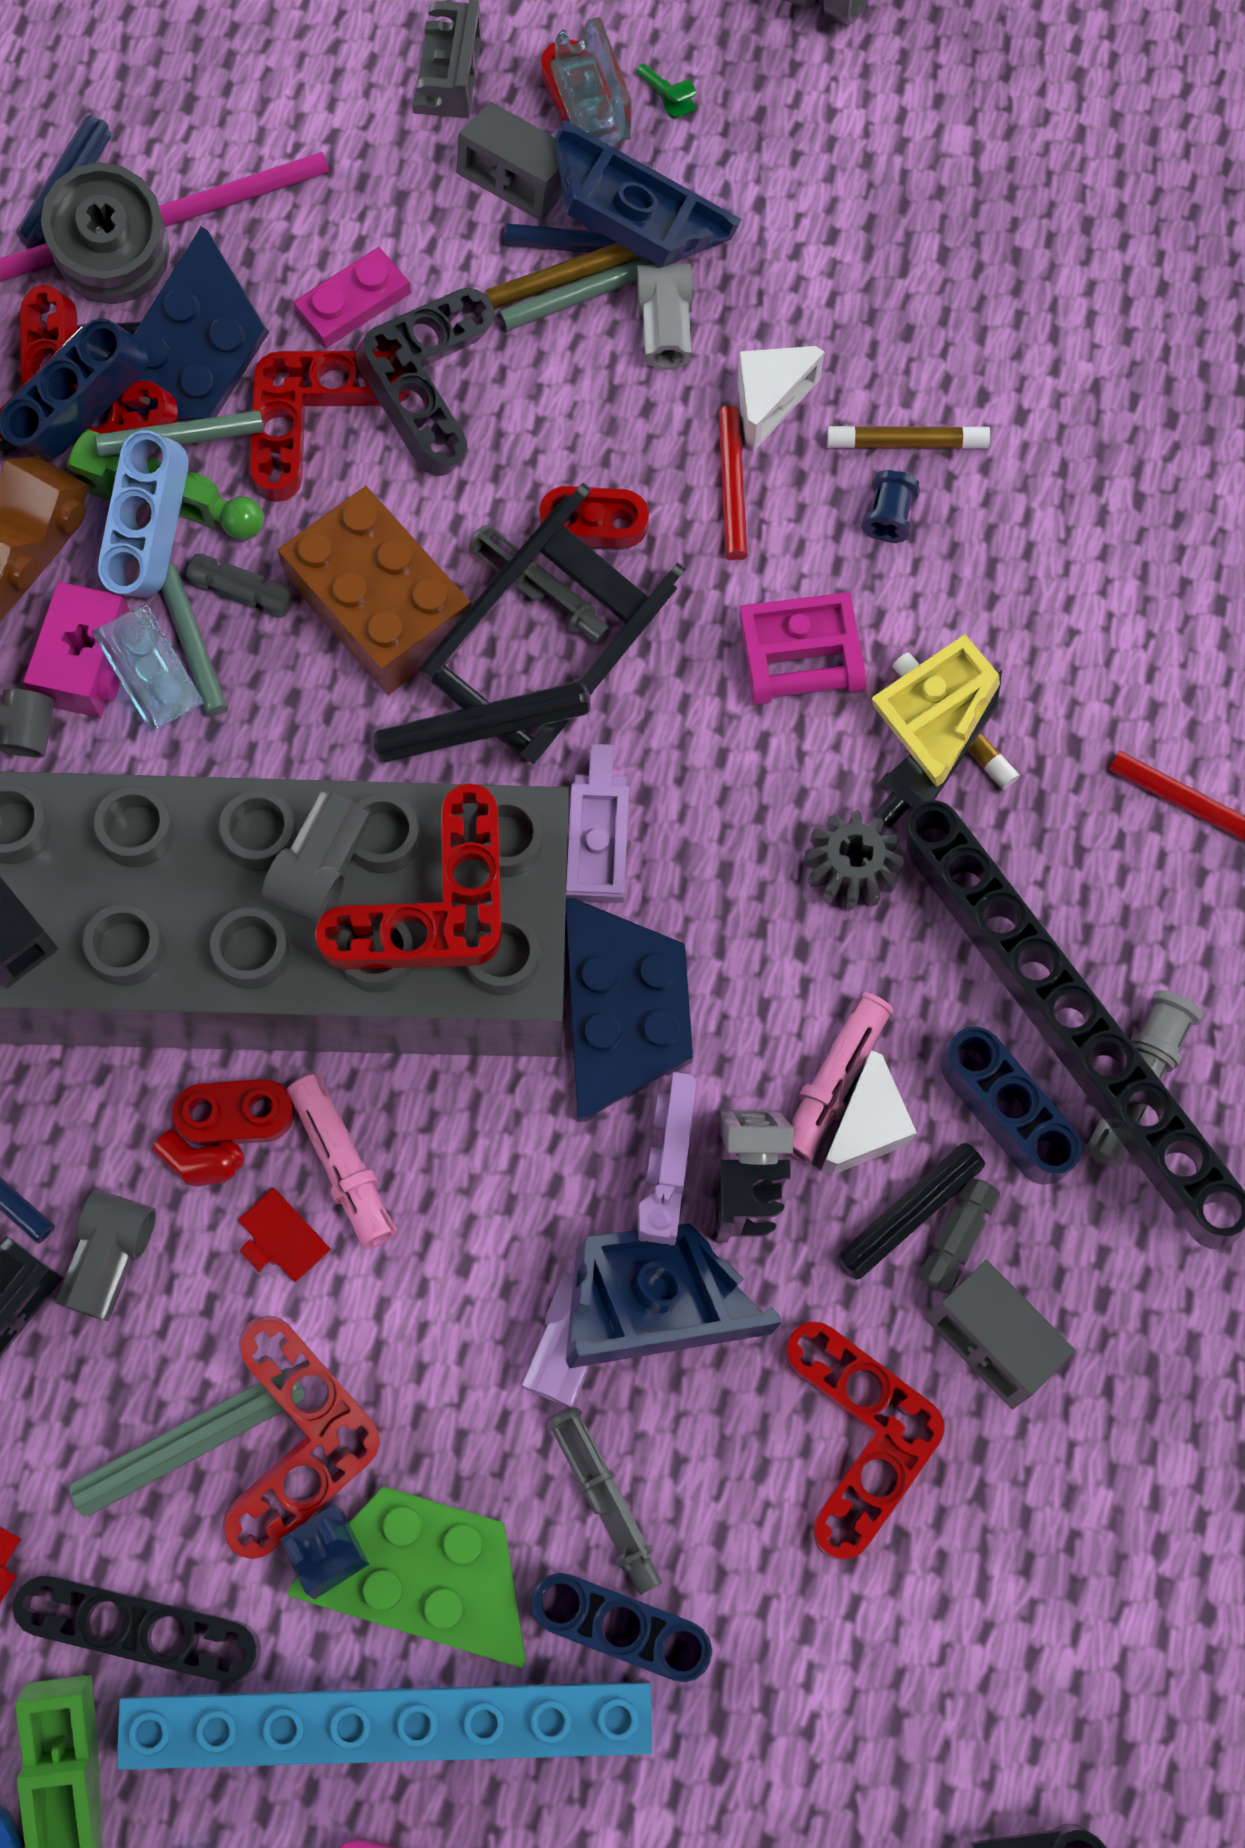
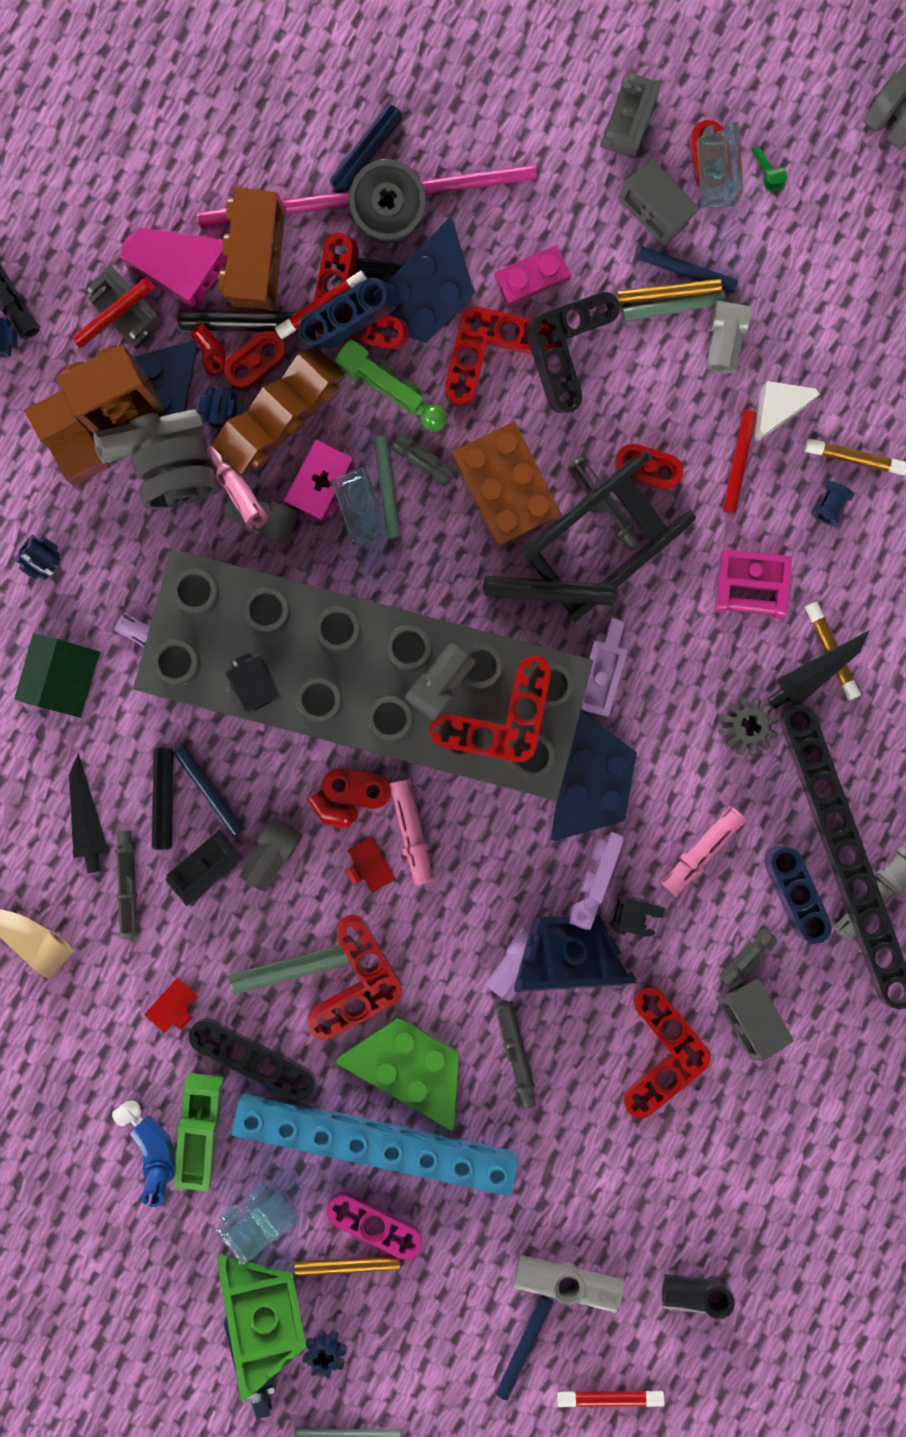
camera: 15 degrees right, 15 degrees up
(131, 489) = (362, 419): light blue beam -> none
(187, 431) = (407, 355): sand green bar -> none
(324, 1551) = (359, 1046): dark blue tile -> none
(634, 202) = (726, 256): dark blue wing -> none
(654, 1627) = (519, 1137): dark blue beam -> none
(756, 1135) = (649, 883): light grey plate -> none
(873, 1120) = (717, 882): white slope -> none
(910, 1211) = (724, 937): black axle -> none
(939, 705) = (825, 645): light yellow wing -> none

